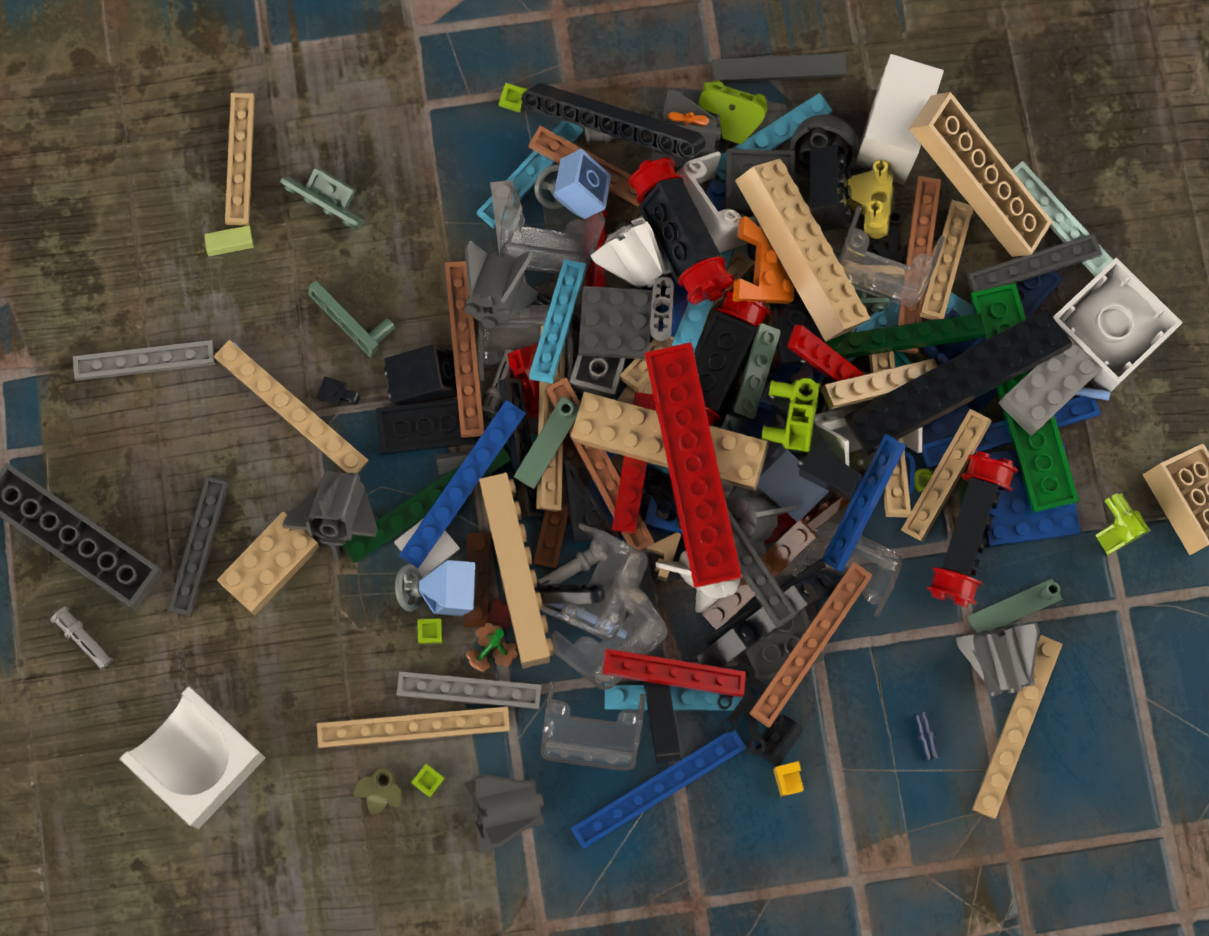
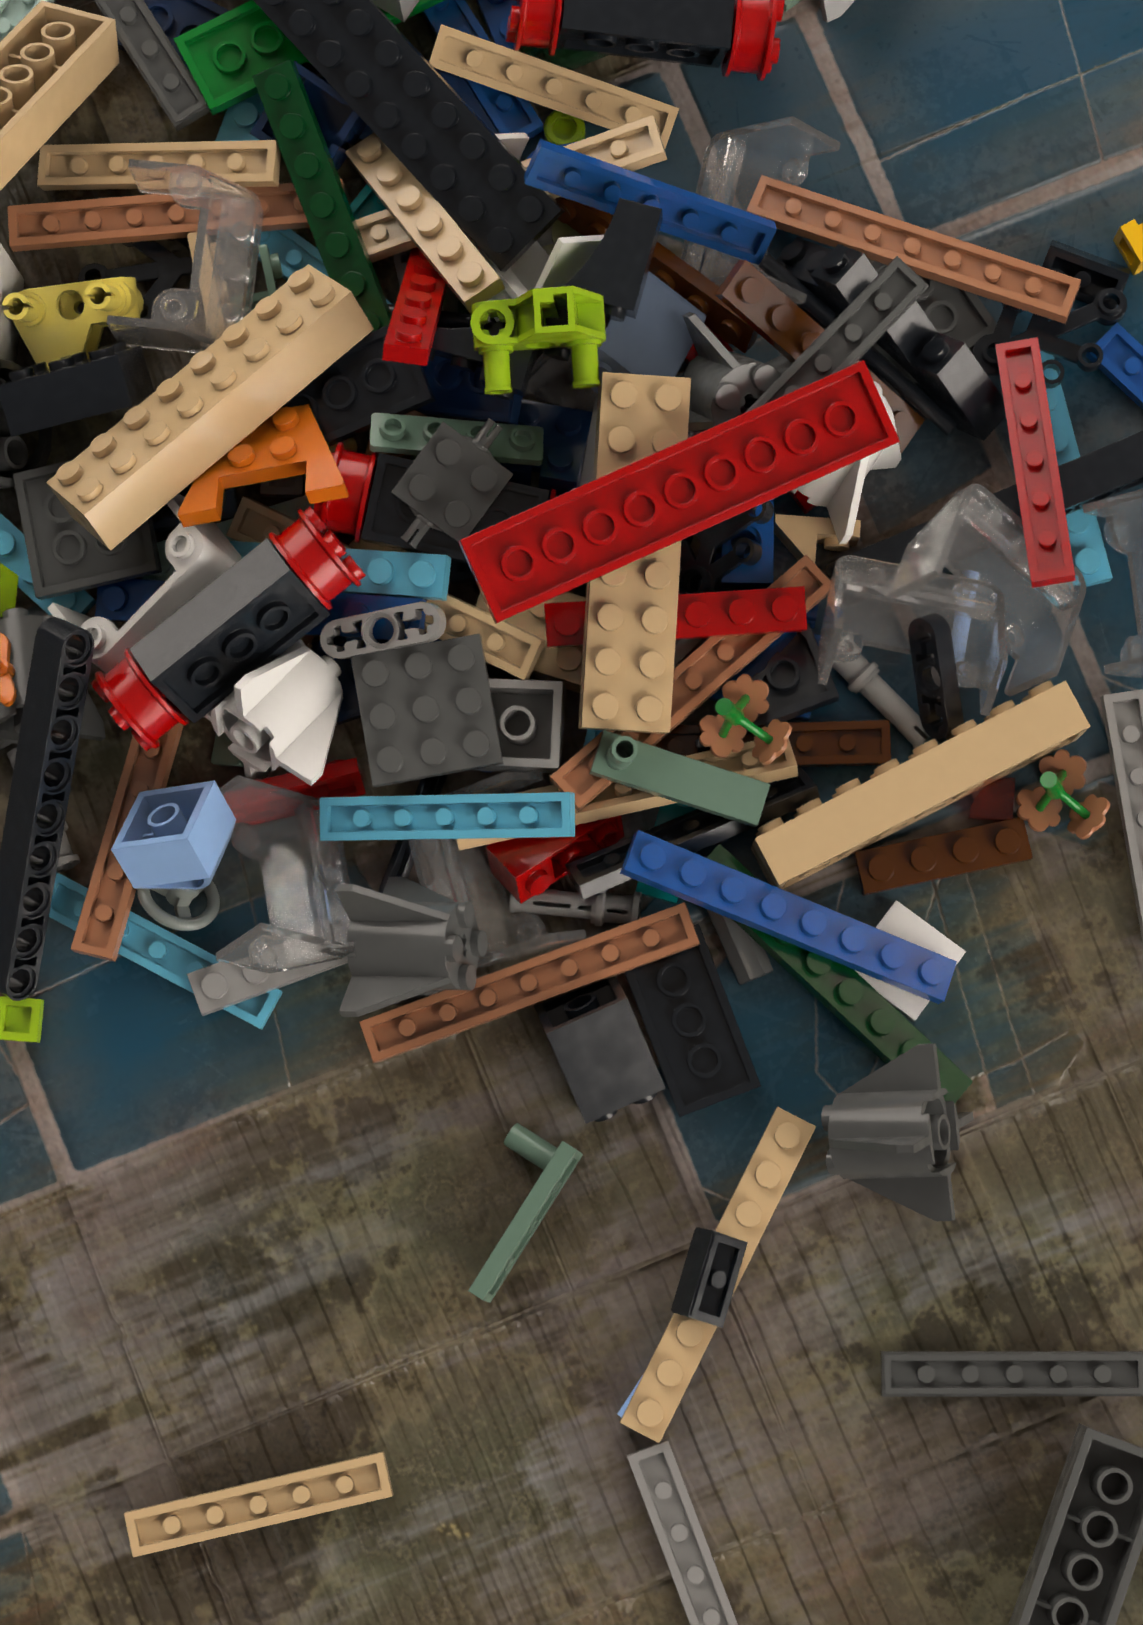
camera: 90 degrees left, 5 degrees up
(228, 241) = (423, 1481): yellowish green slope -> none
(268, 564) = (1022, 1236): tan brick -> none
(289, 400) = (709, 1276): none -> black slope
(328, 193) = (290, 1318): sand green bracket -> none
(335, 391) = (664, 1203): black plate -> none
(429, 631) = (1058, 914): lime plate -> none
(445, 589) = (982, 900): light blue piece -> none
(568, 474) = (736, 715): none -> nougat plant
(731, 360) = (452, 482): none -> dark grey plate
(926, 736) = (1012, 33): dark blue pin -> none

